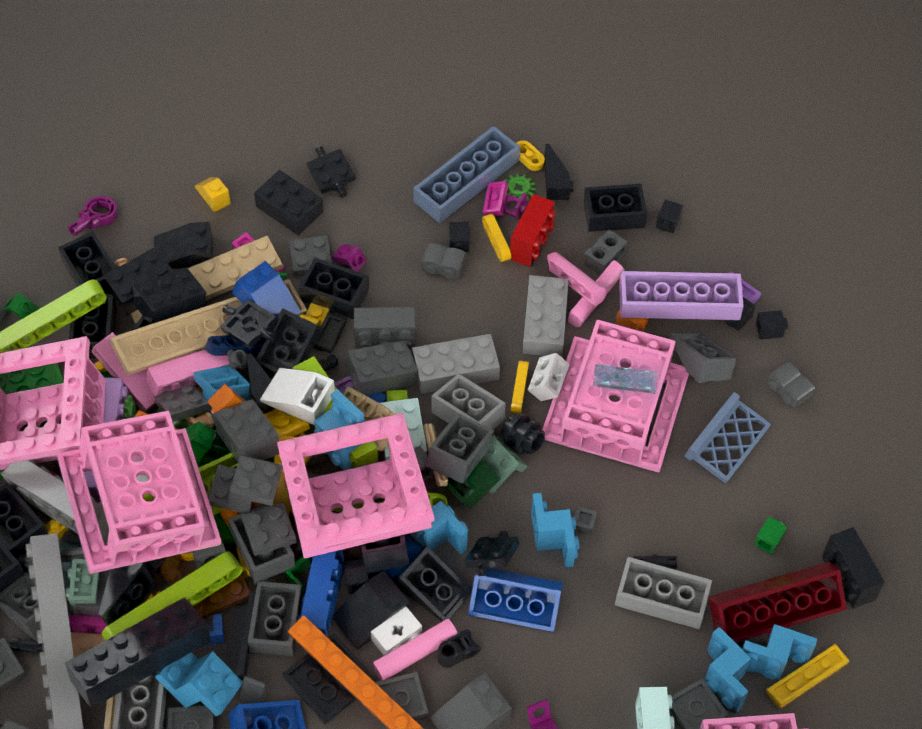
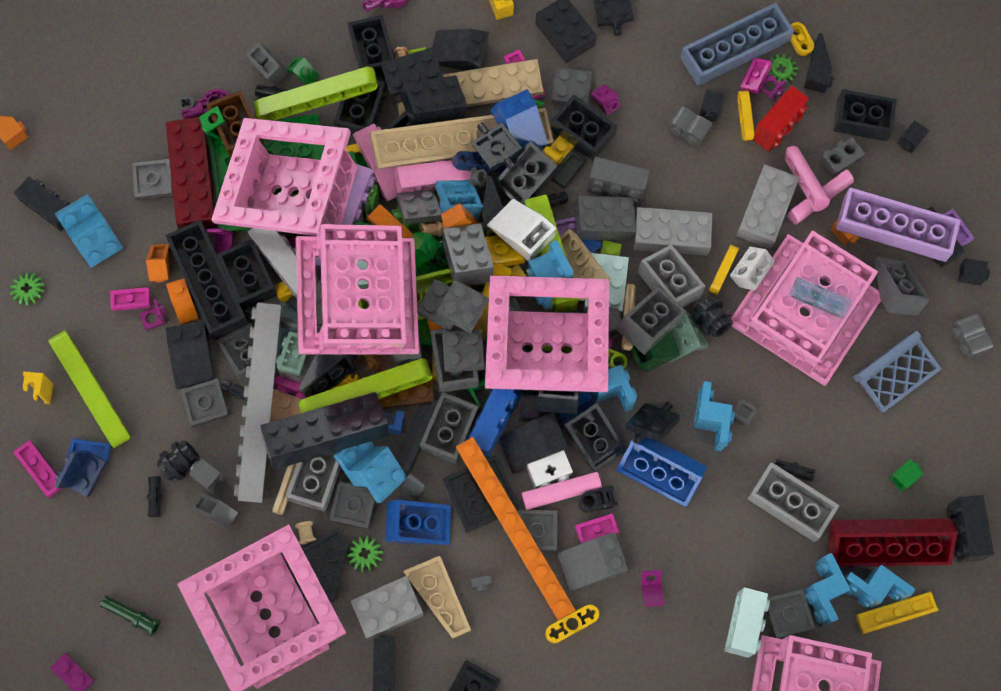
camera: 15 degrees right, 15 degrees up
(457, 681) = (596, 528): none -> dark pink plate

